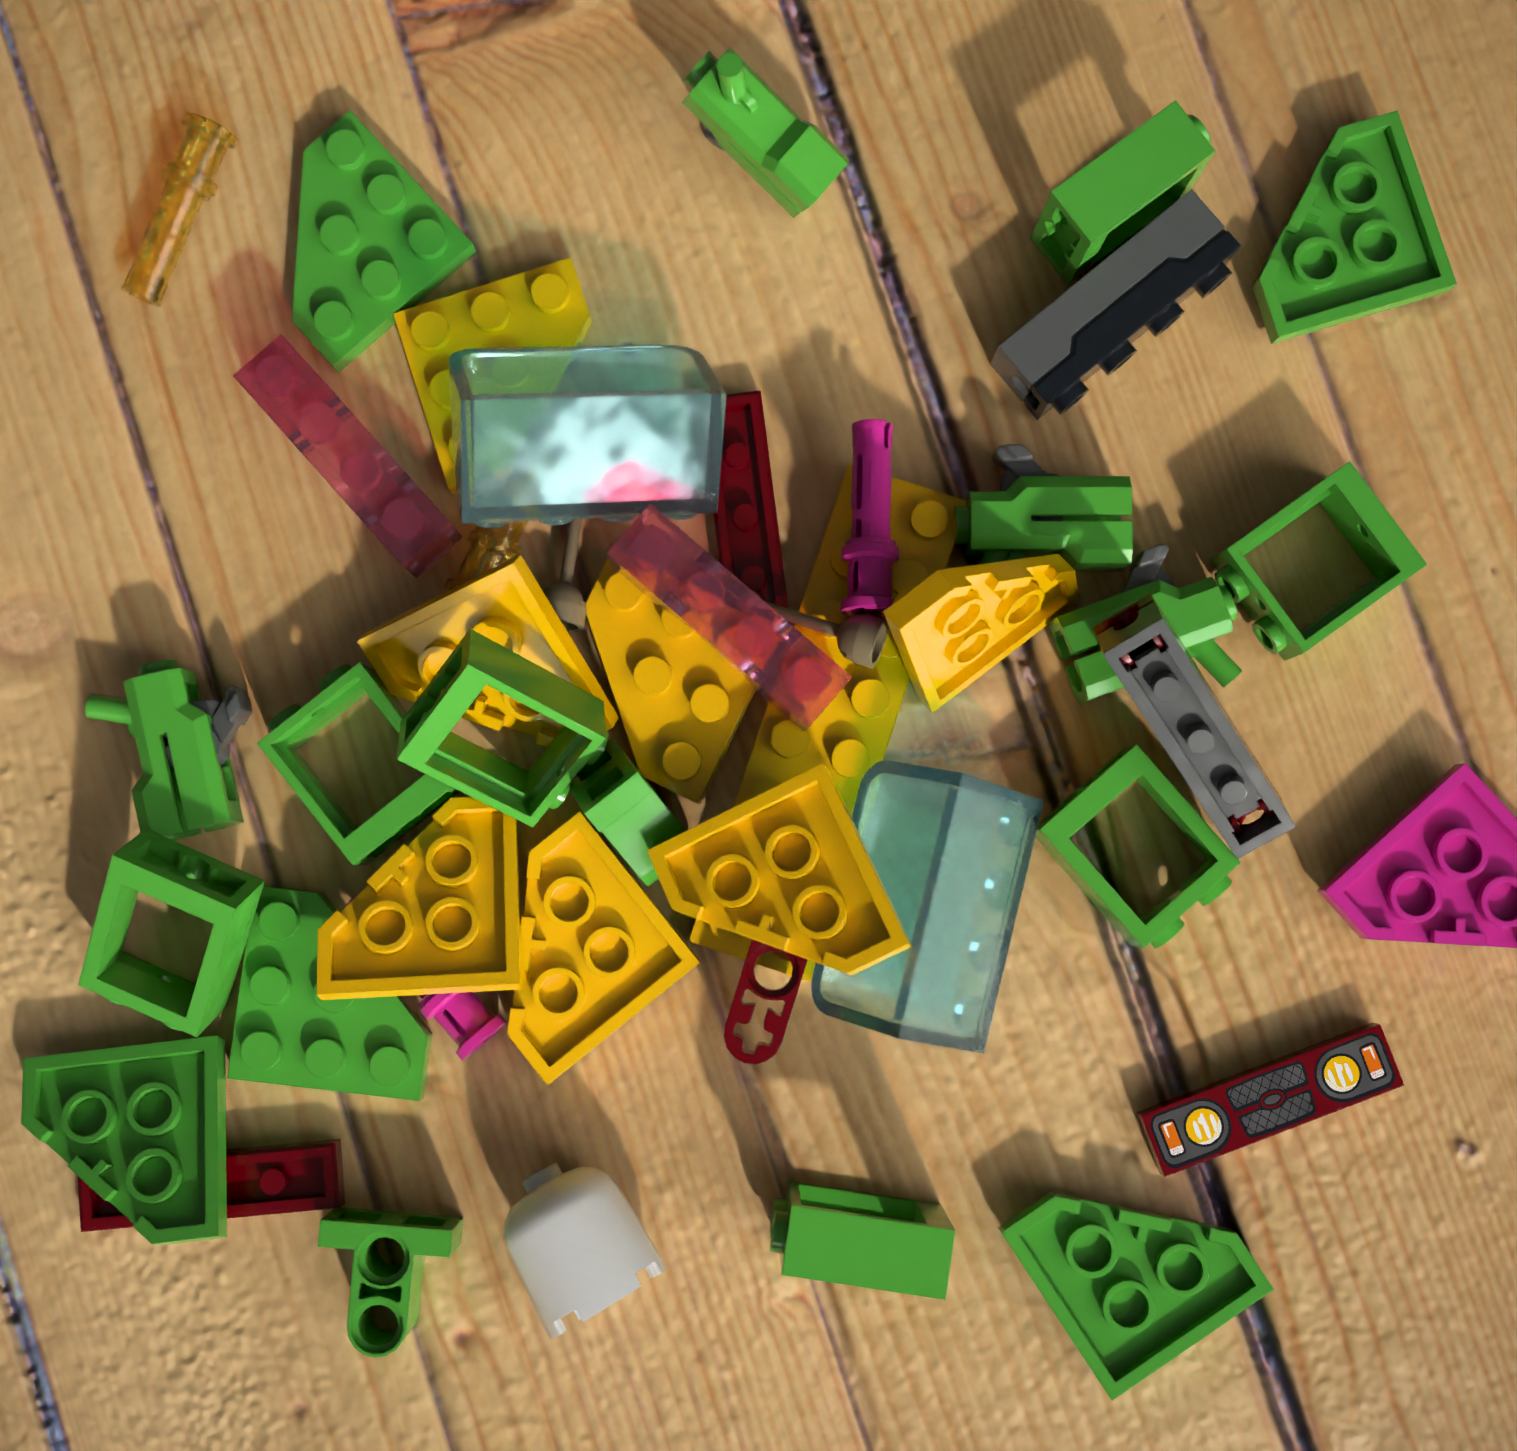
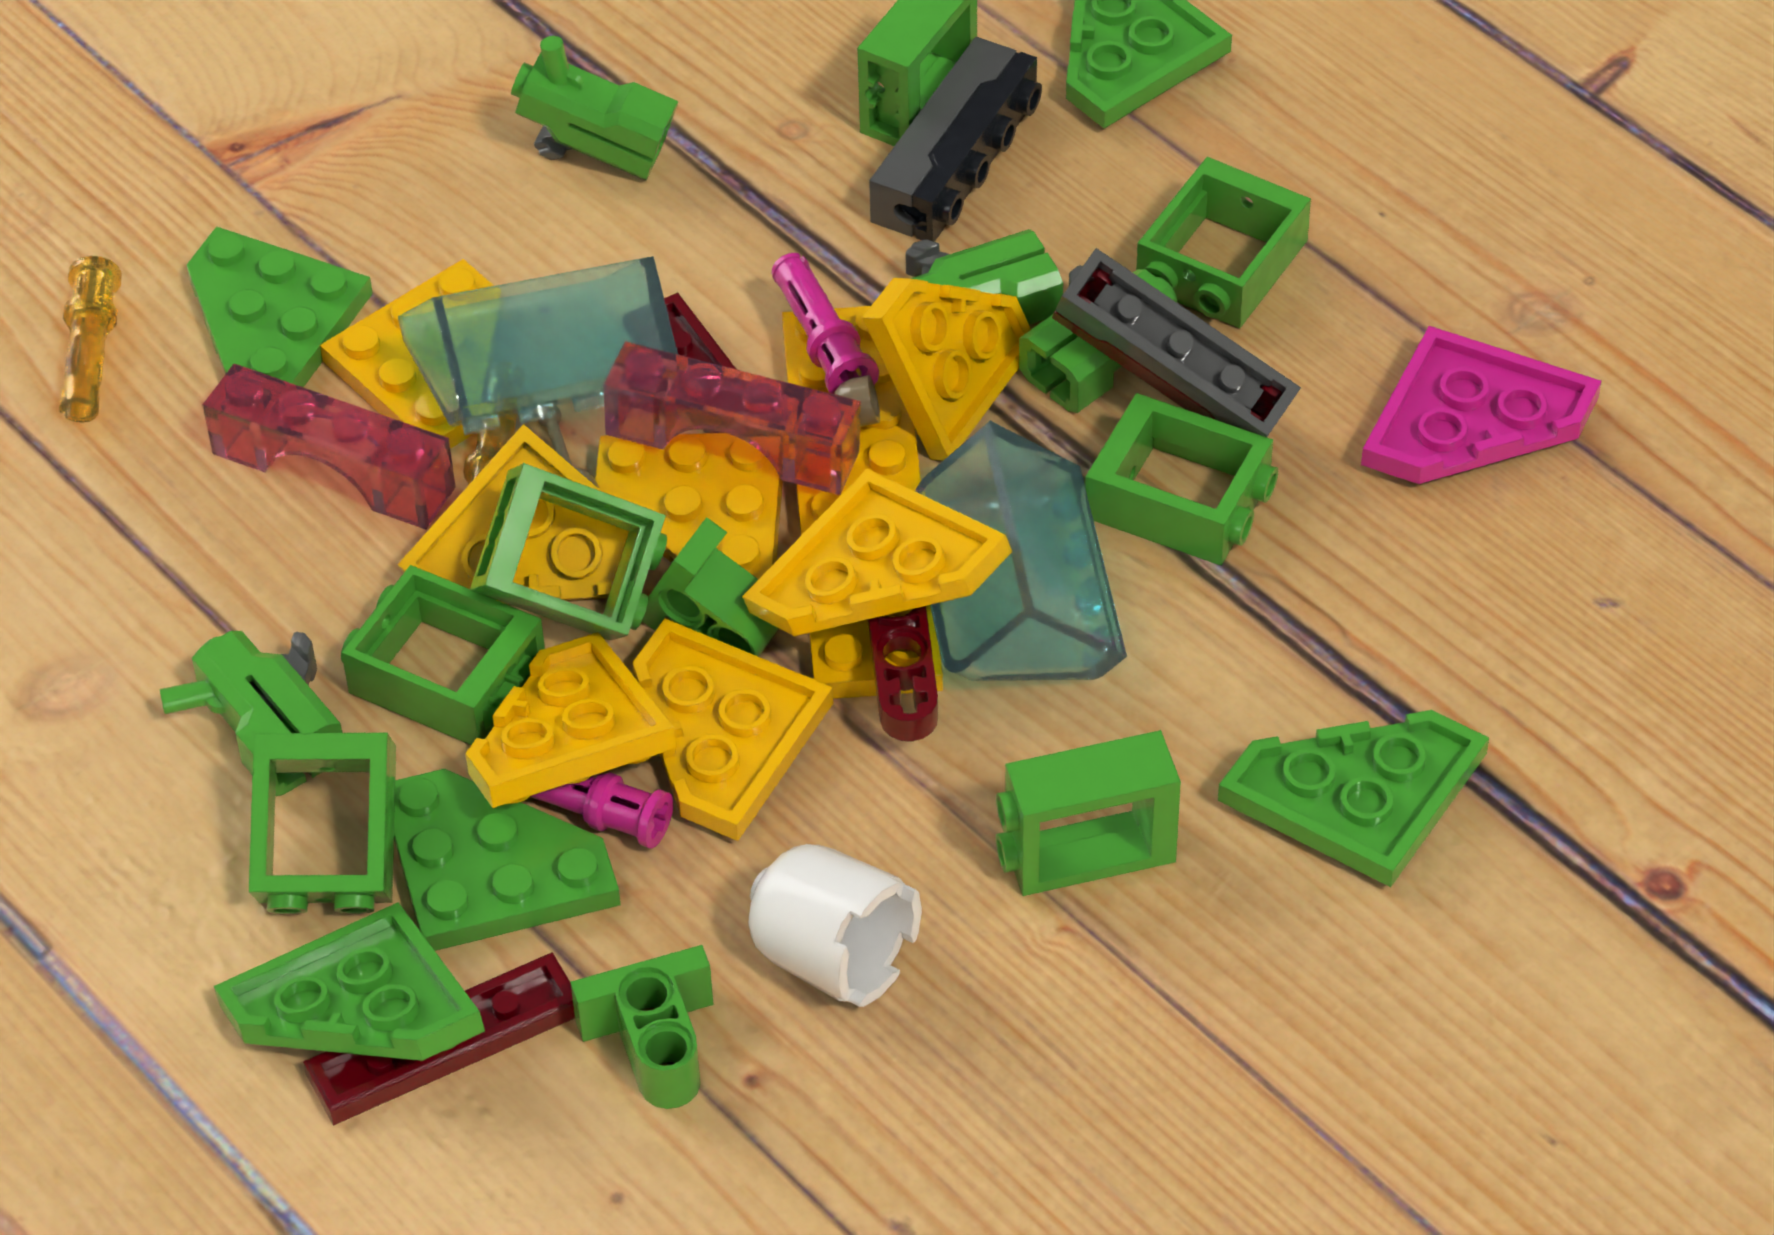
camera: 20 degrees left, 35 degrees down
(1270, 1099) = (1406, 621): tile -> none

